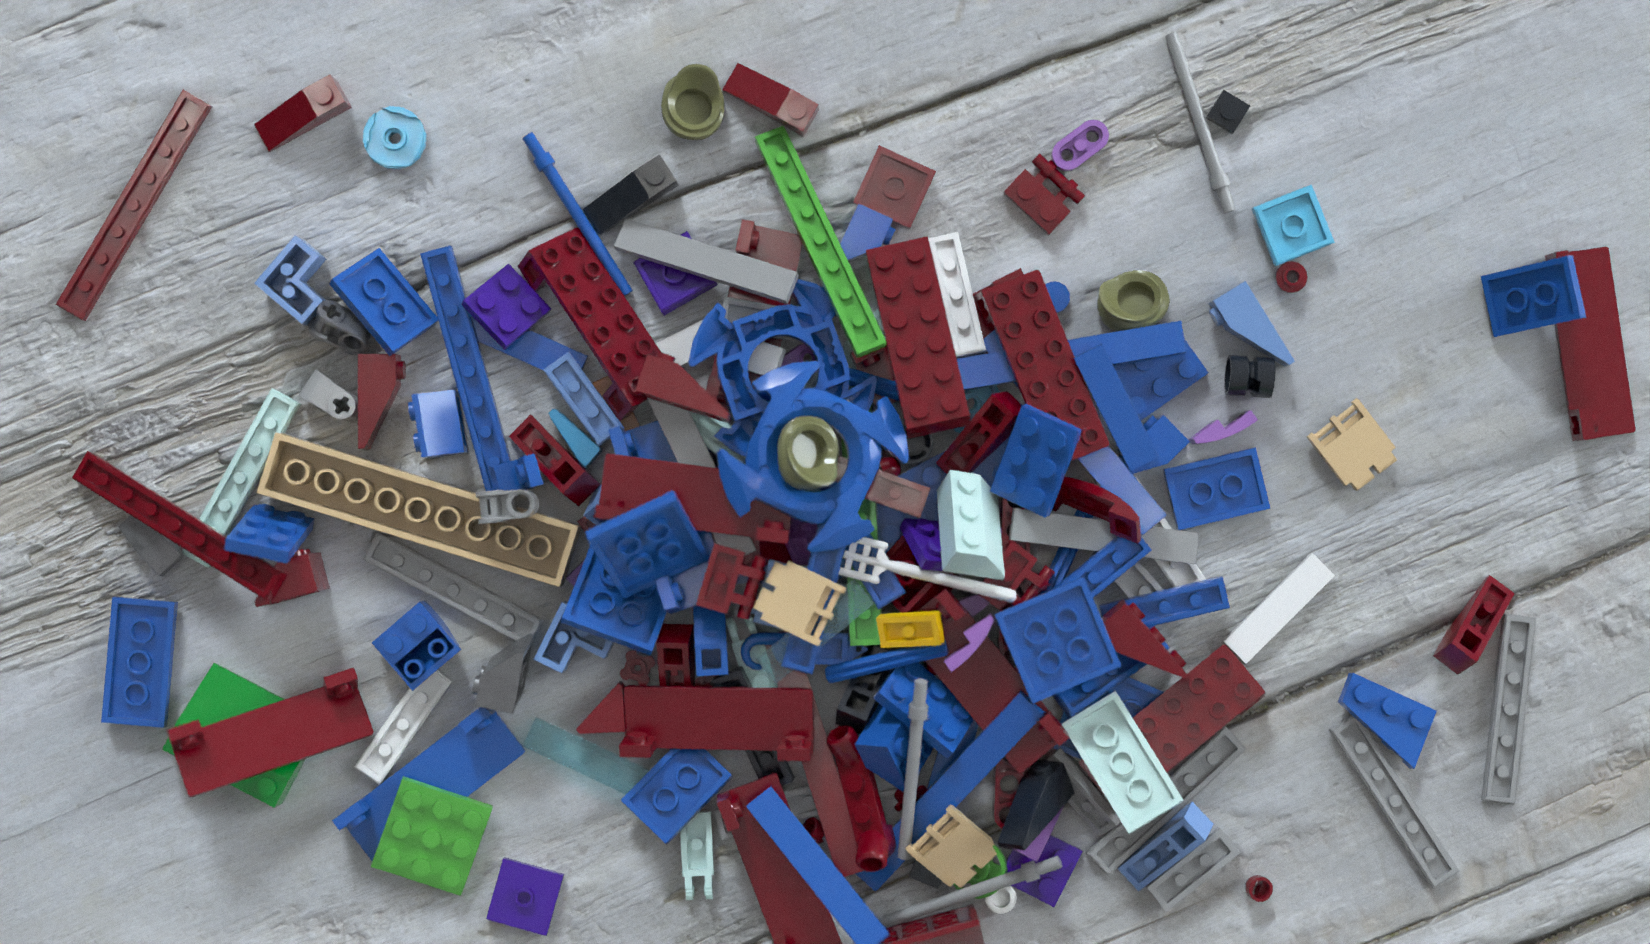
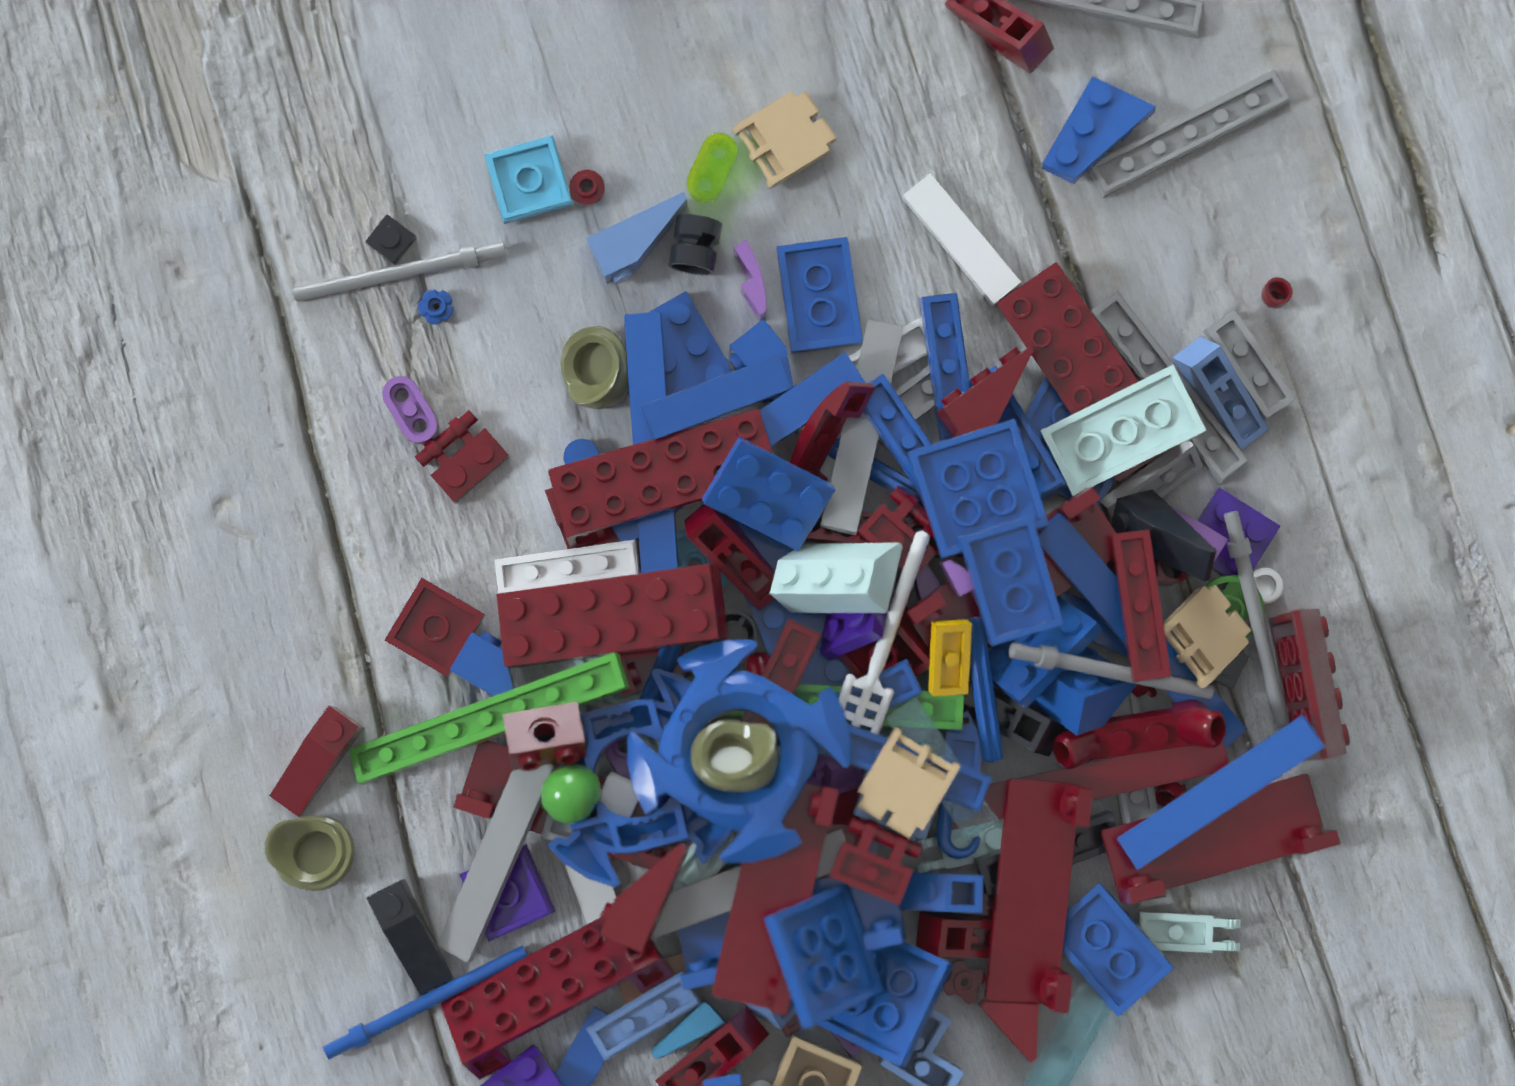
camera: 95 degrees left, 5 degrees down
(763, 317) = (570, 793): none -> bright green hair
(822, 299) = (557, 721): none -> brick
(970, 789) = (1140, 606): none -> dark red plate
(980, 674) = (1011, 580): none -> blue plate
(1169, 165) = (440, 315): none -> blue plate
(1319, 384) = (710, 168): none -> clear neon green plate

